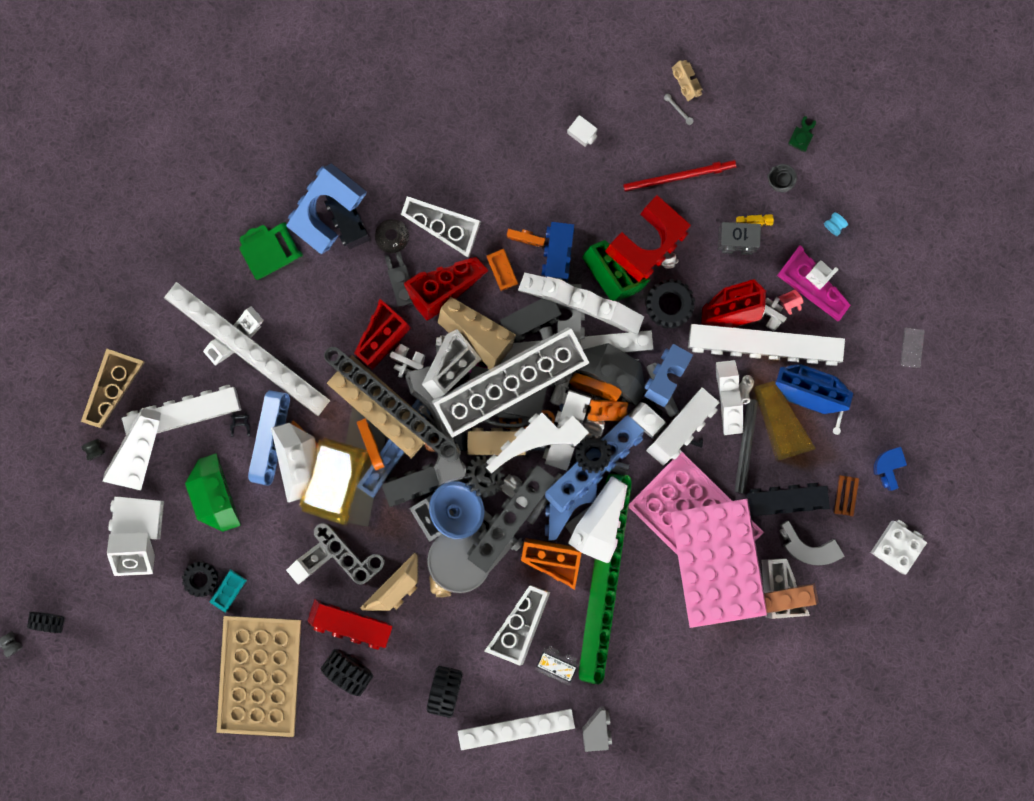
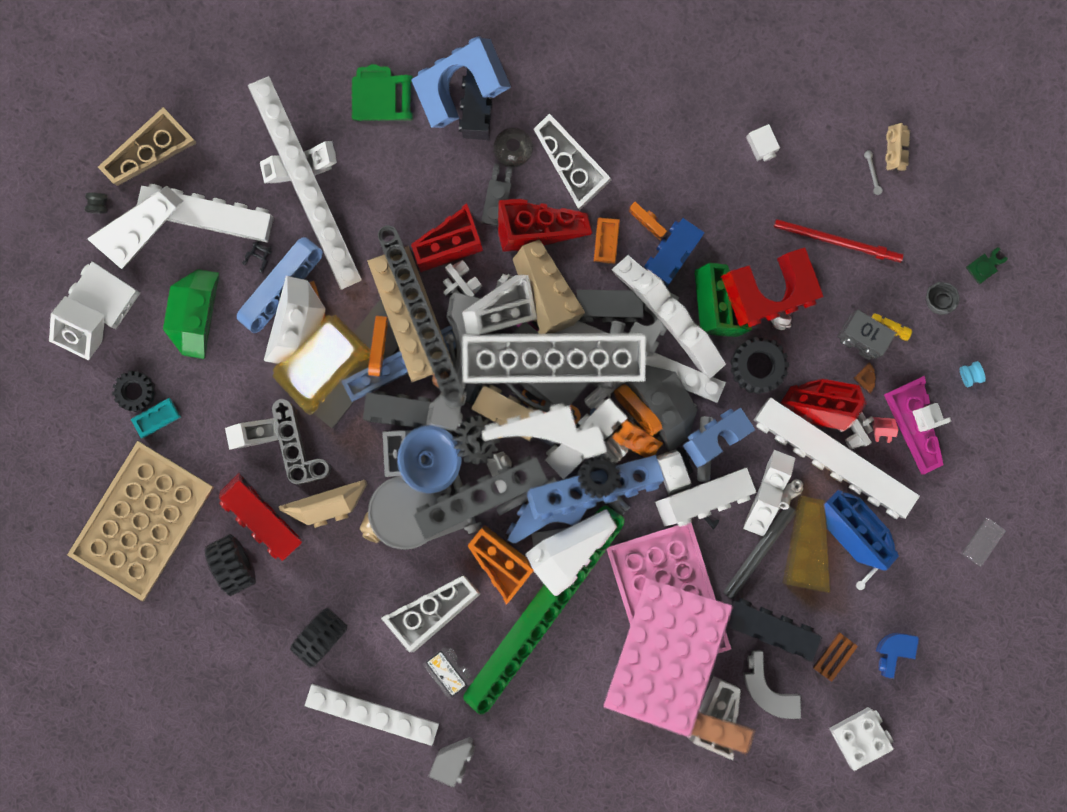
camera: 25 degrees right, 0 degrees up
(757, 269) = (866, 378): none -> dark orange tile

